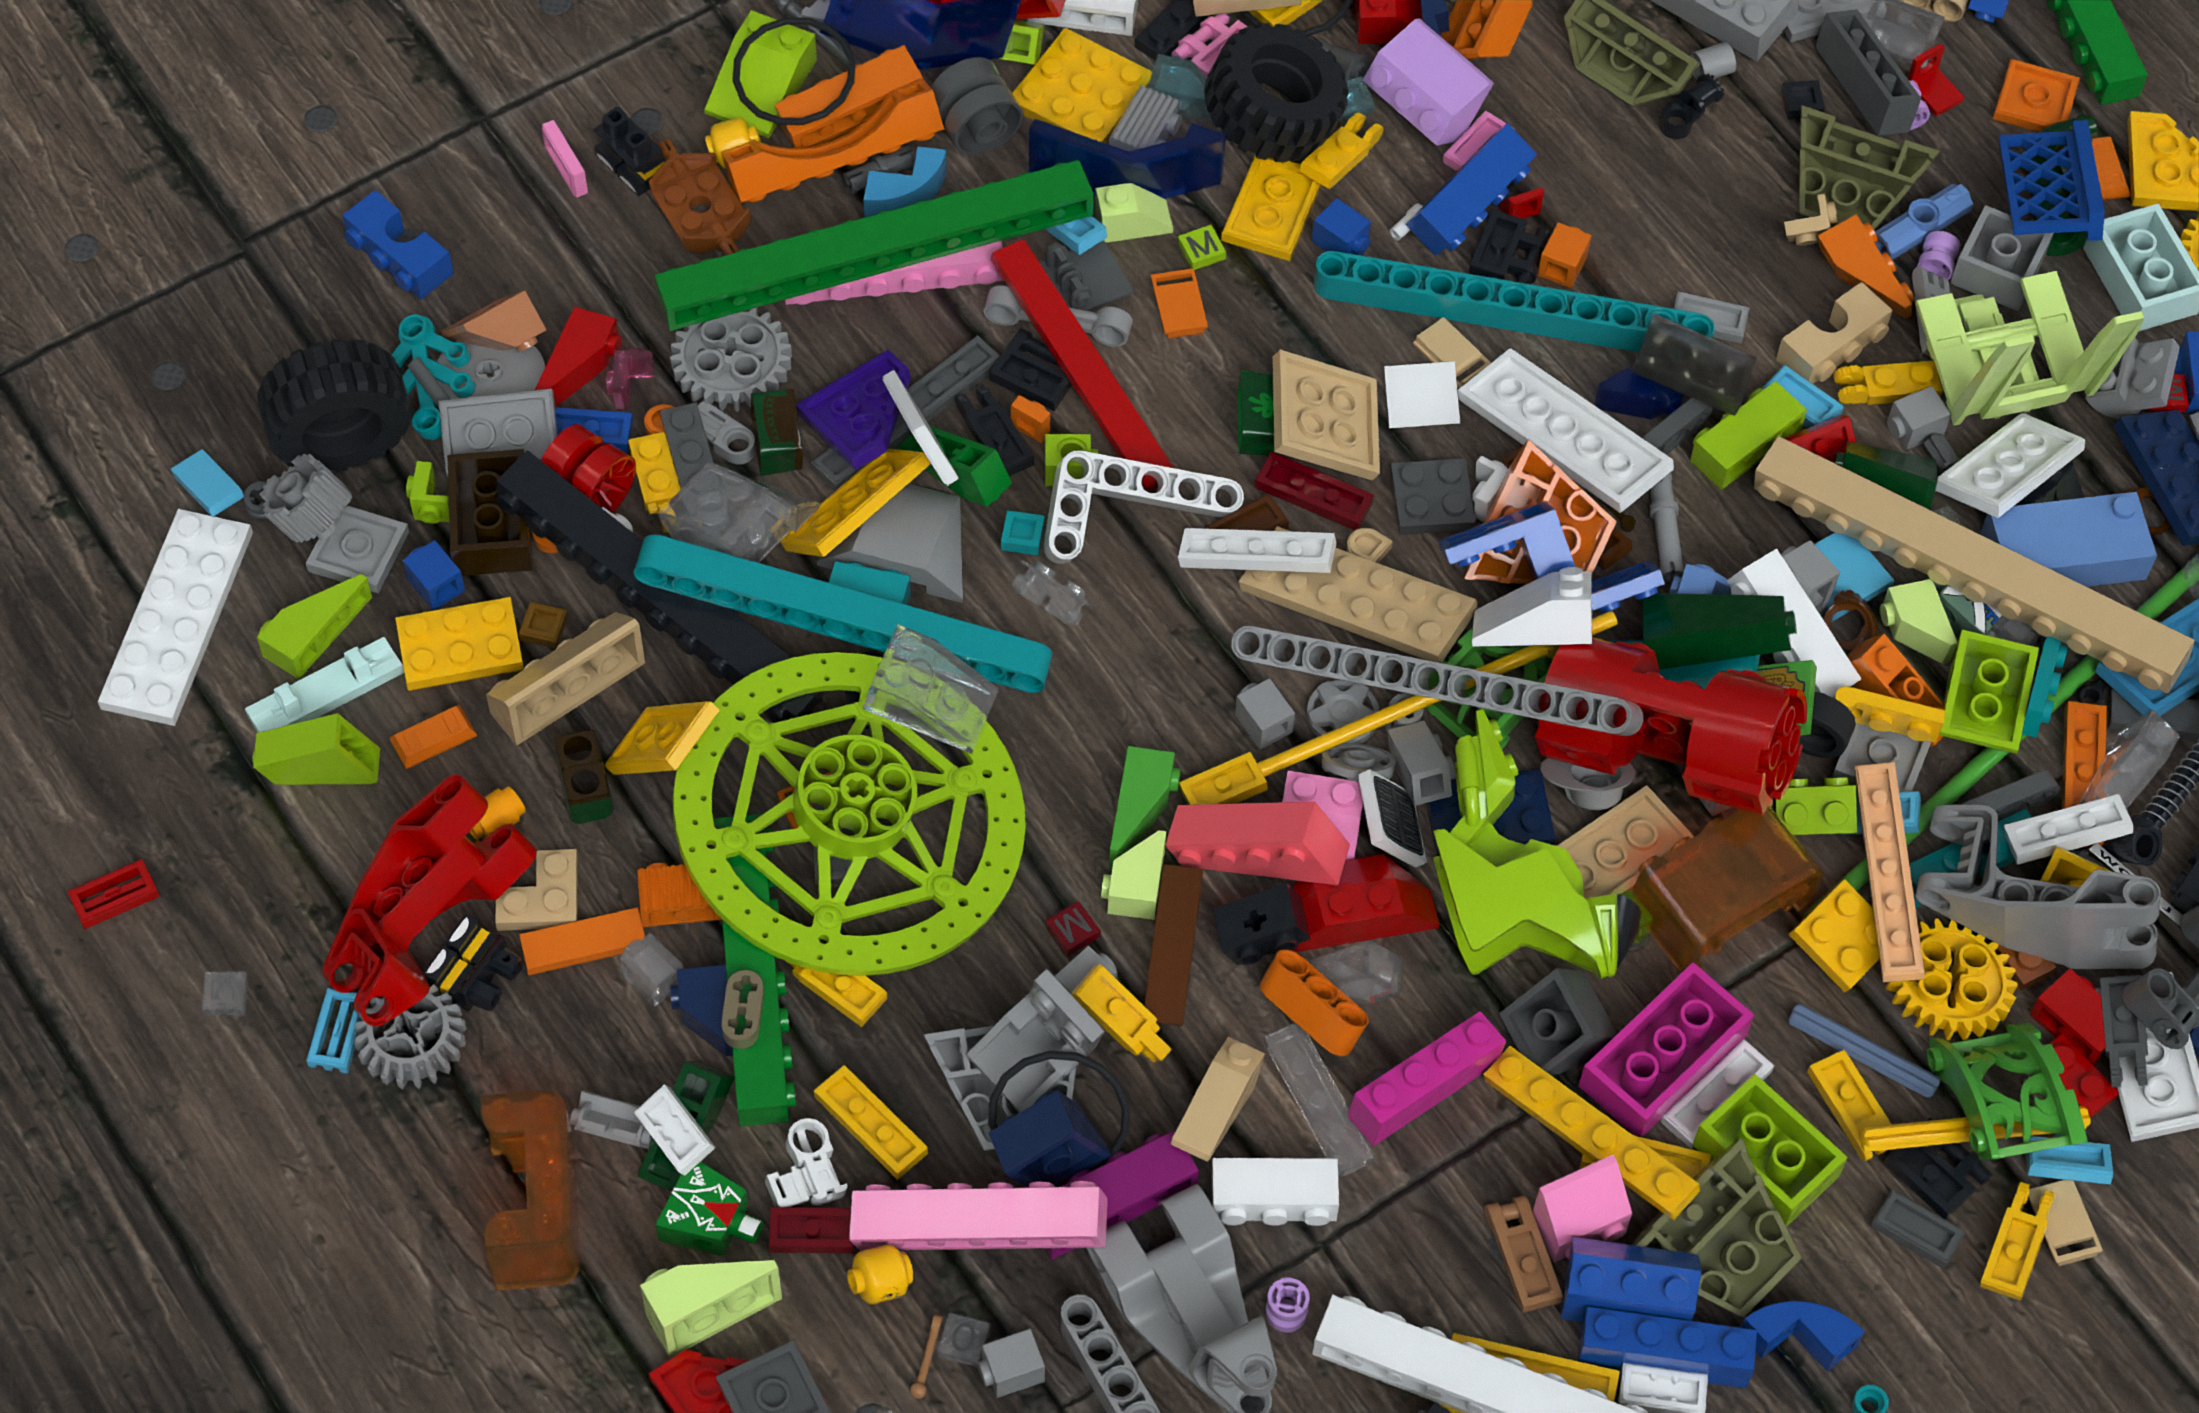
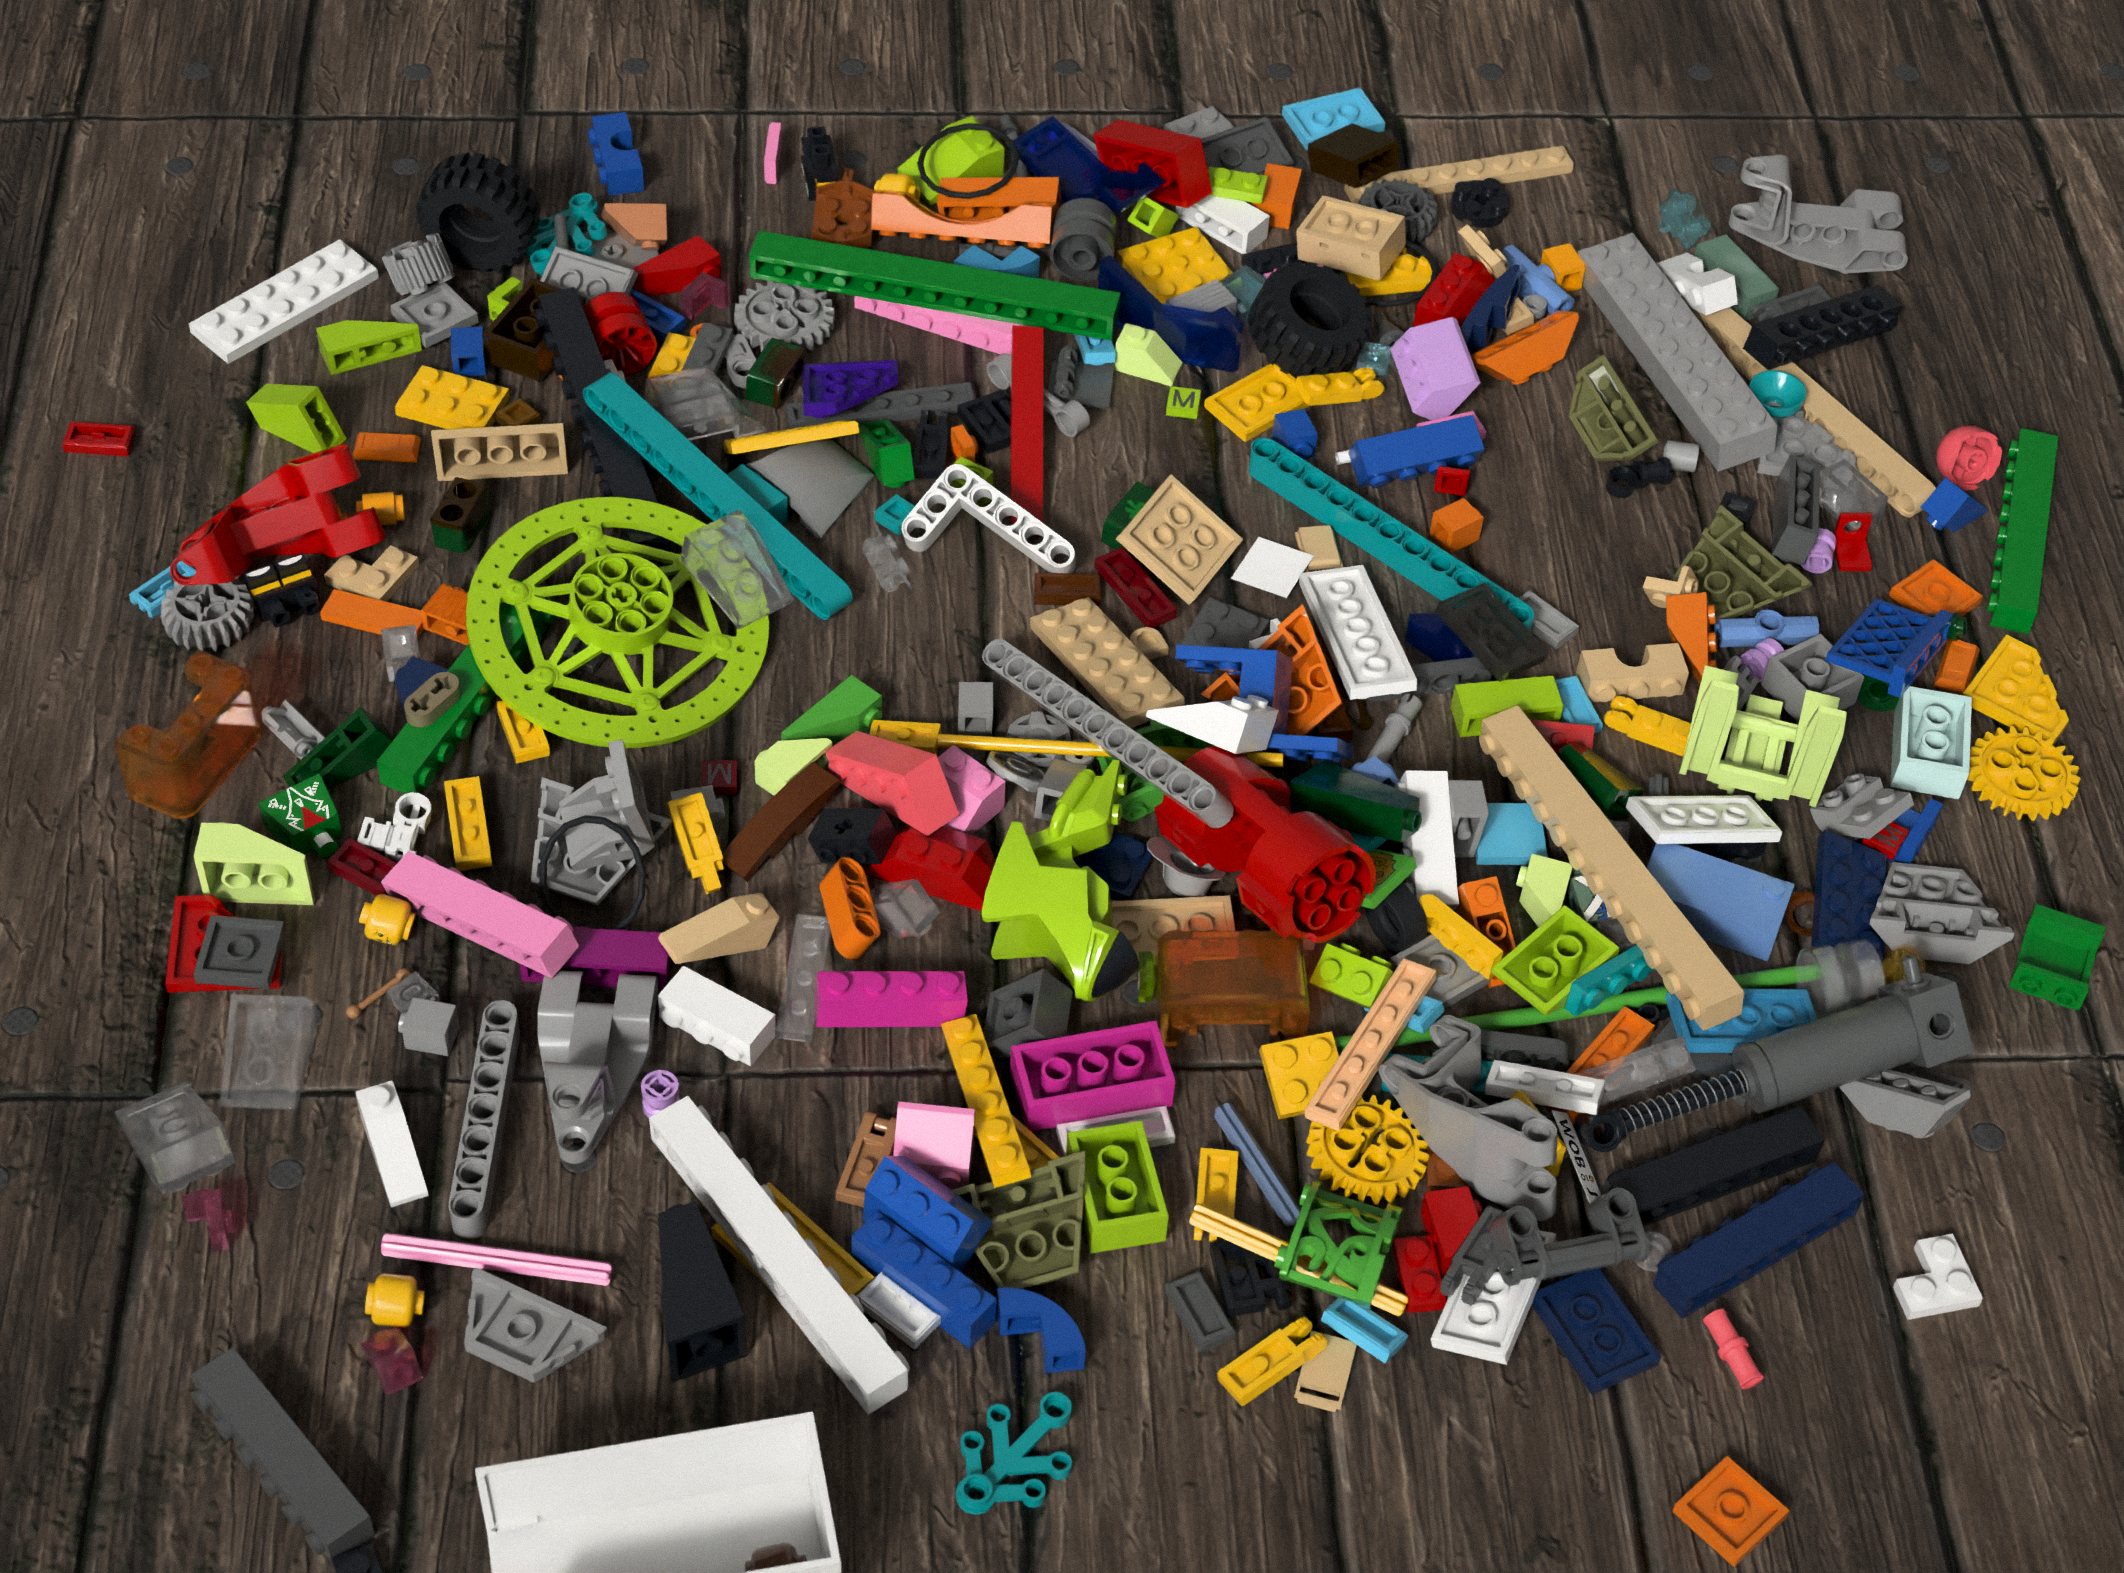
camera: 30 degrees right, 10 degrees down
(207, 483) = (371, 233): medium azure tile -> none
(225, 993) = (116, 530): clear tile -> none
(327, 687) = (349, 386): light aqua hinge -> none
(661, 738) = (526, 509): yellow tile -> none
(674, 1129) = (319, 748): white plate -> none
(920, 428) = (865, 404): white tile -> none
(1048, 1142) = (569, 886): dark blue slope -> none
(1179, 304) = (1136, 430): orange piece -> none
(1257, 550) = (1053, 598): white plate -> none
(1392, 818) = (1003, 803): tile -> none
(1499, 245) = (1410, 499): black plate -> none
(1852, 601) = (1495, 852): reddish brown piece -> none
(1918, 418) = (1654, 756): light grey brick -> none

